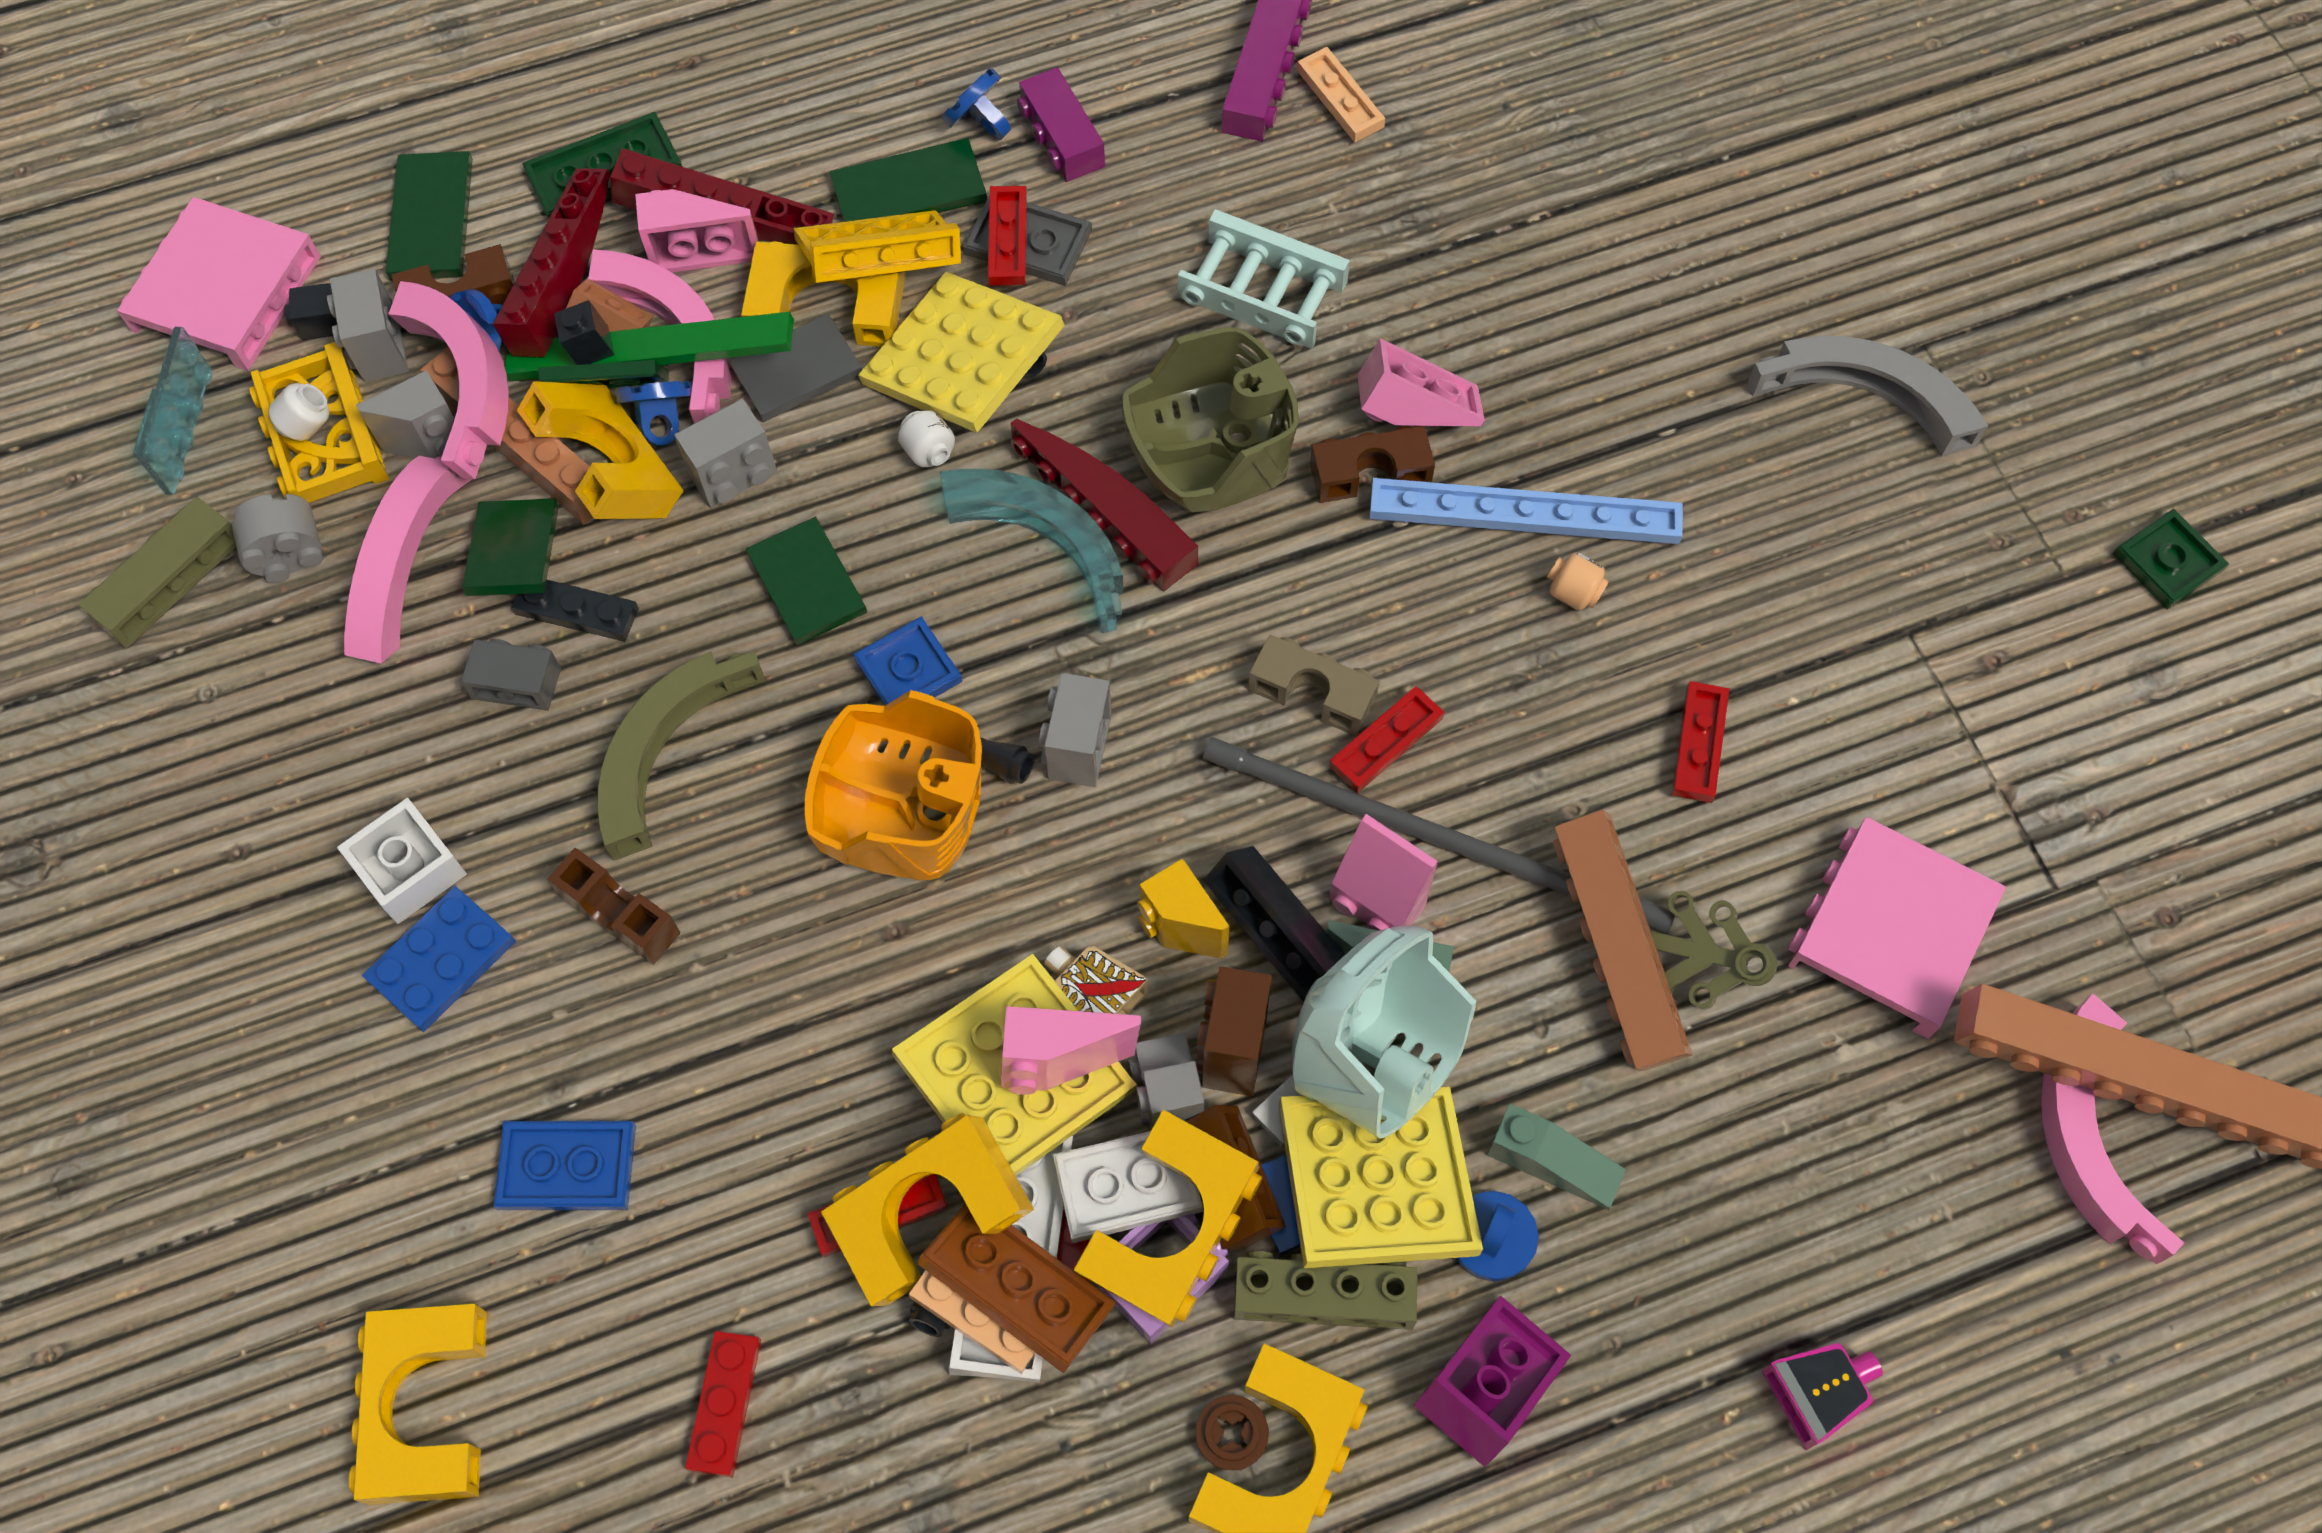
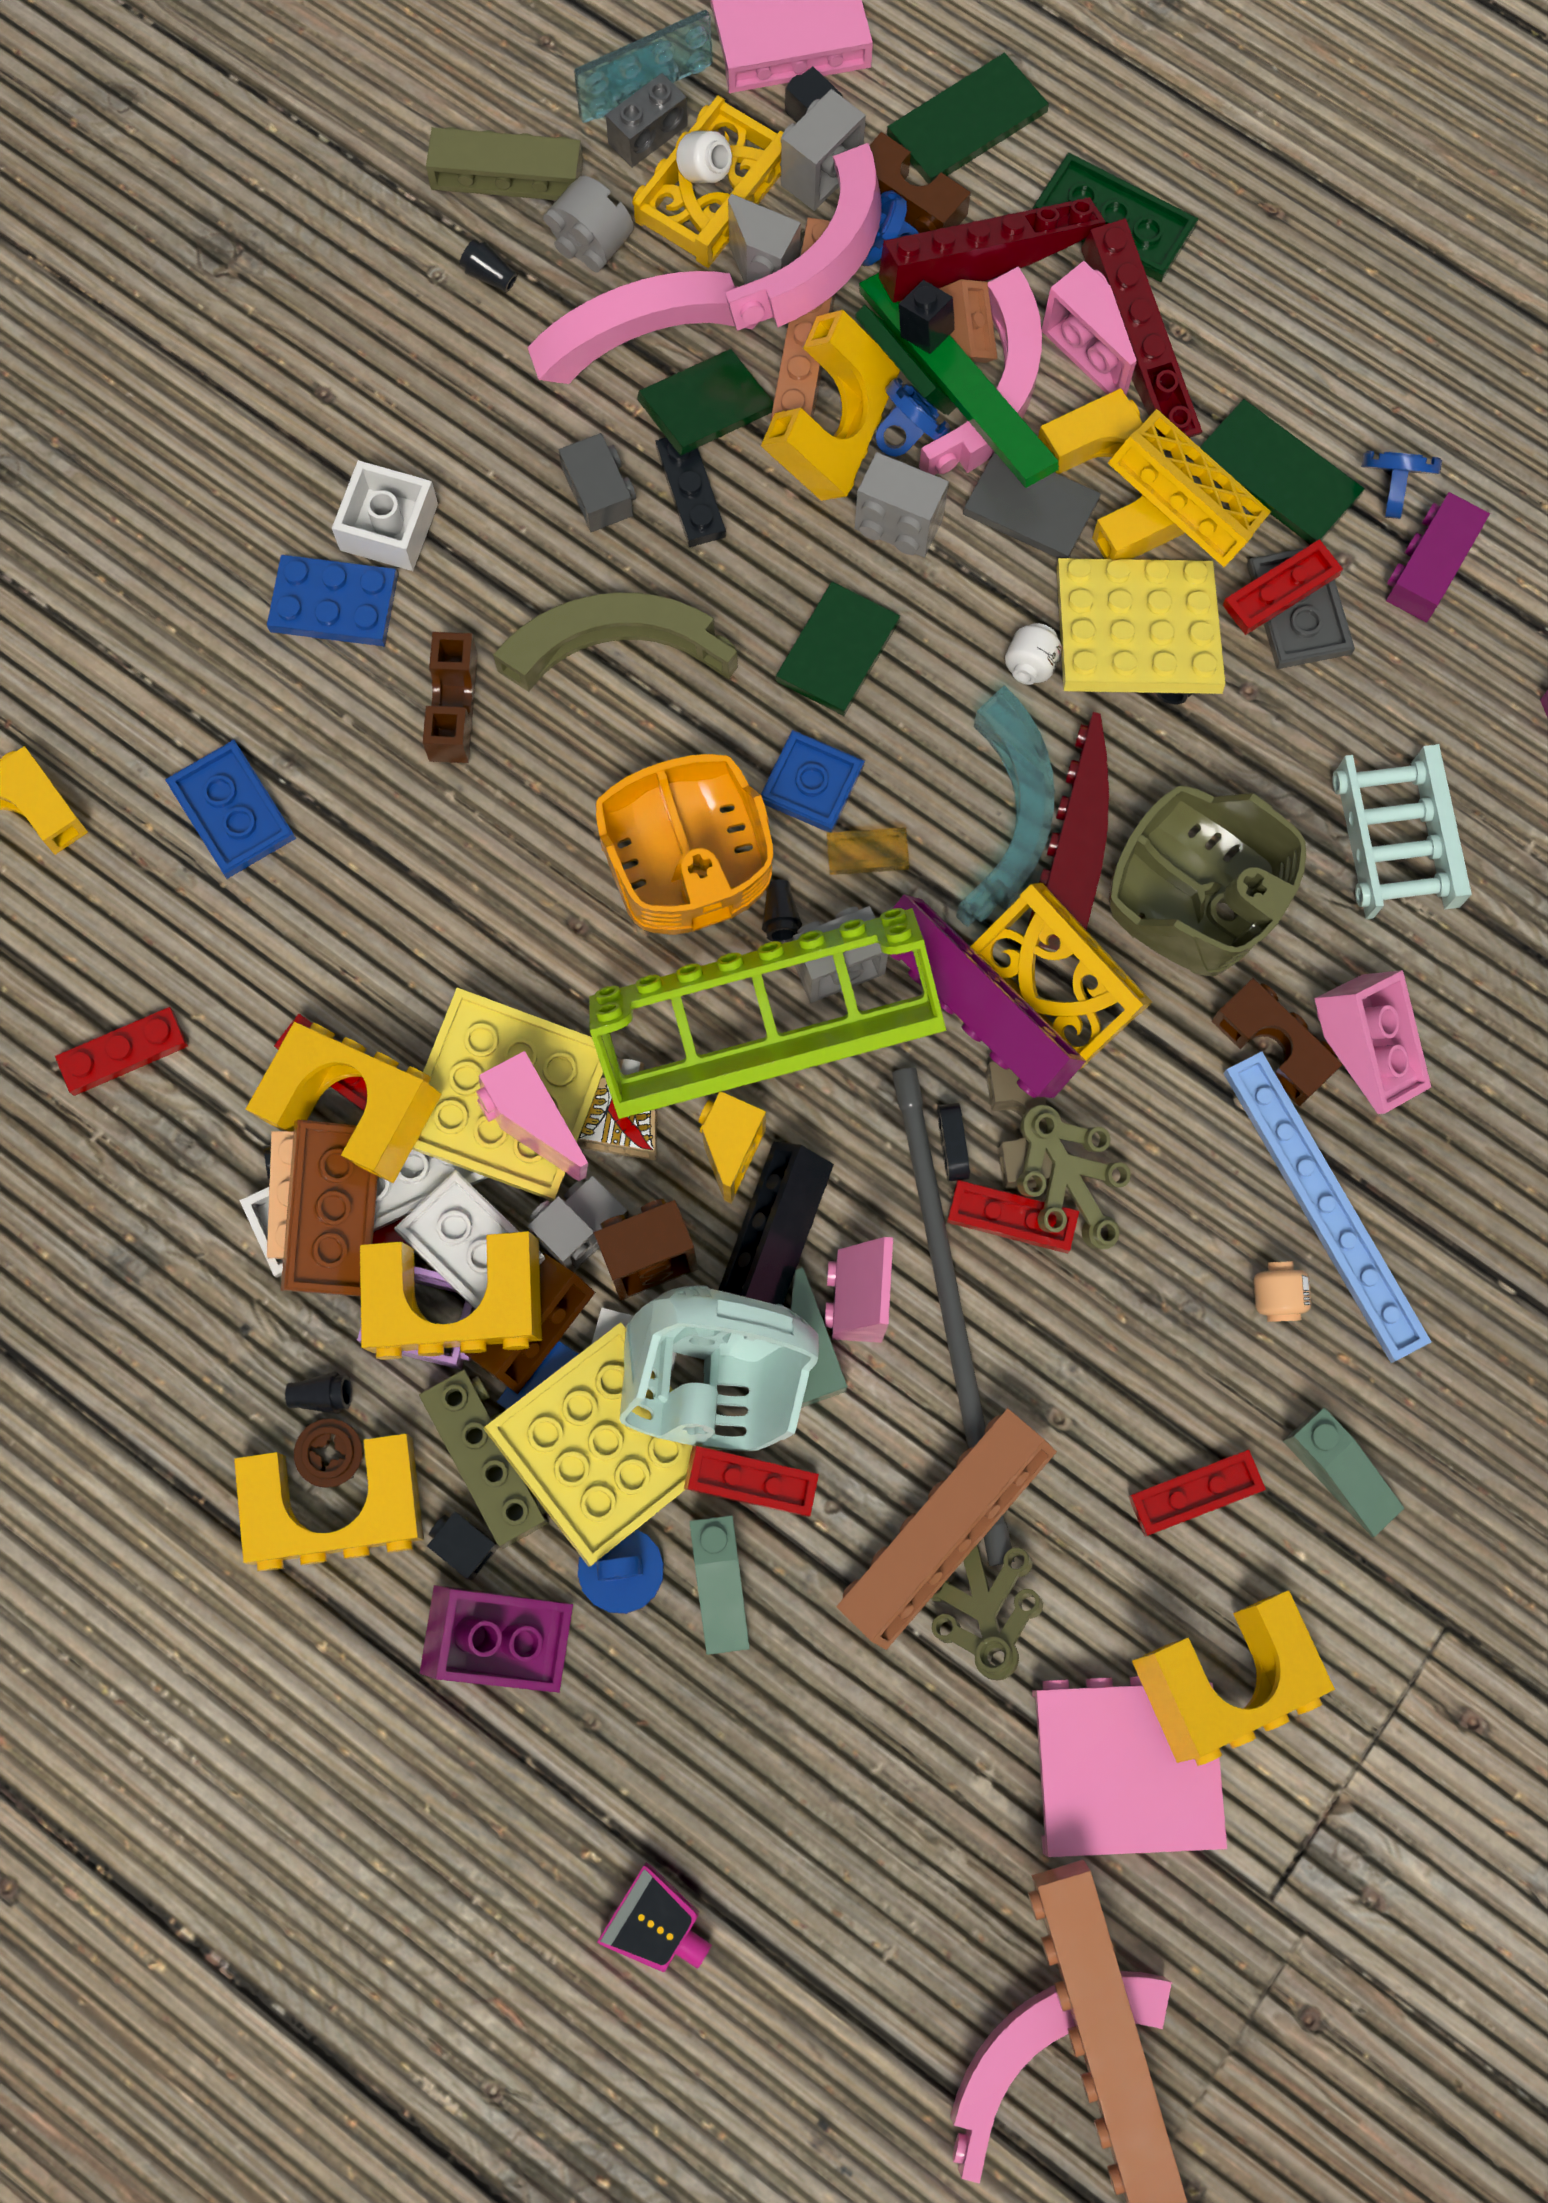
camera: 55 degrees right, 10 degrees up
(220, 440) = (647, 120): none -> flat silver brick
(239, 644) = (487, 266): none -> black cone
(997, 663) = (867, 851): none -> clear yellow tile
(1109, 902) = (776, 1052): none -> lime window
(1172, 1407) = (322, 1393): none -> black cone
(1196, 643) = (991, 1008): none -> magenta brick
(1253, 543) = (1053, 918): none -> yellow fence
(1294, 745) = (953, 1142): none -> black beam
(1338, 664) = (1066, 1173): none -> olive plant
(1391, 1359) = (461, 1545): none -> black brick
(1485, 1075) = (751, 1481): none -> red plate
(1742, 625) = (1344, 1470): none -> sand green slope
(1893, 762) = (1201, 1721): none -> yellow arch

